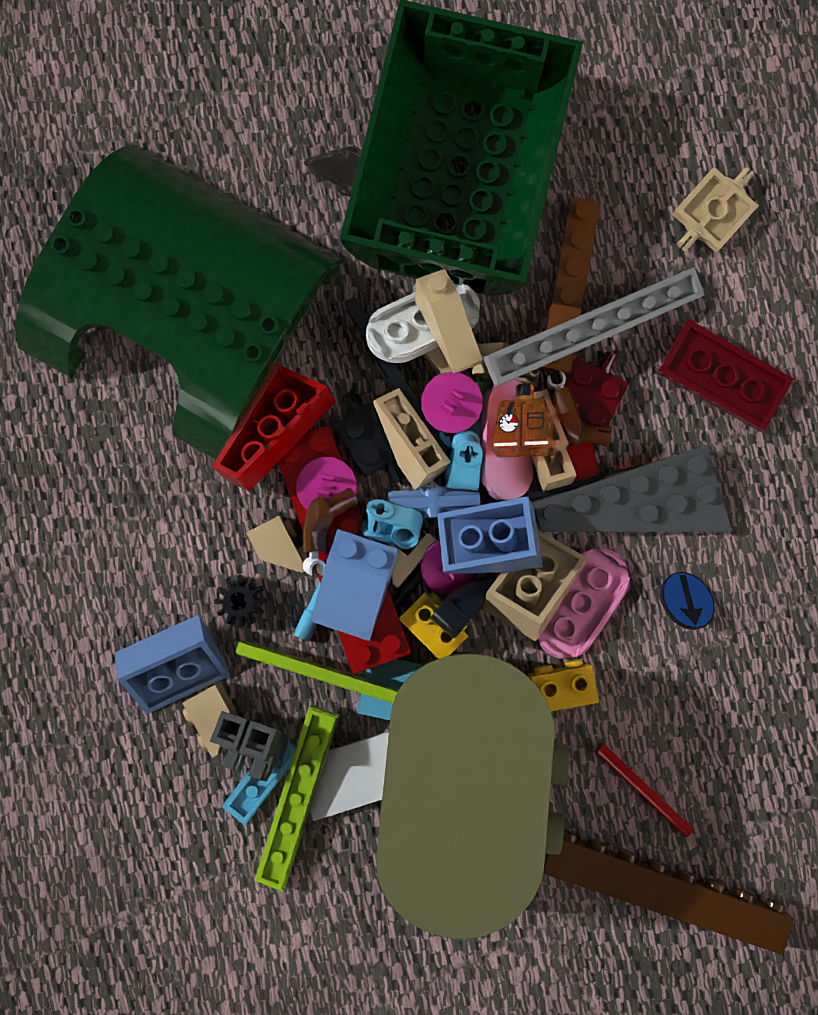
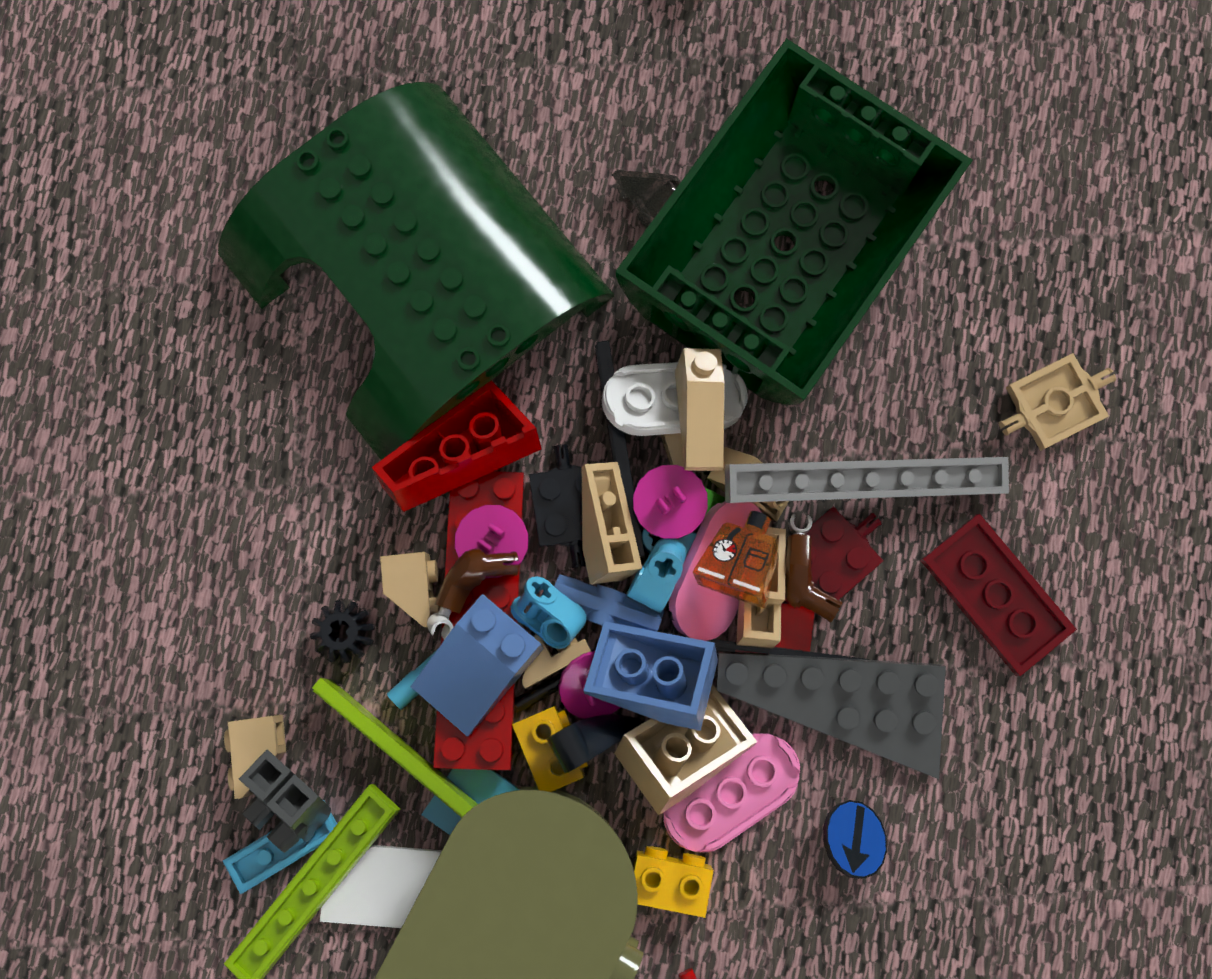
camera: 20 degrees right, 5 degrees down
(170, 664) = (234, 672): medium blue slope -> none
(572, 270) = (867, 407): dark orange plate -> none

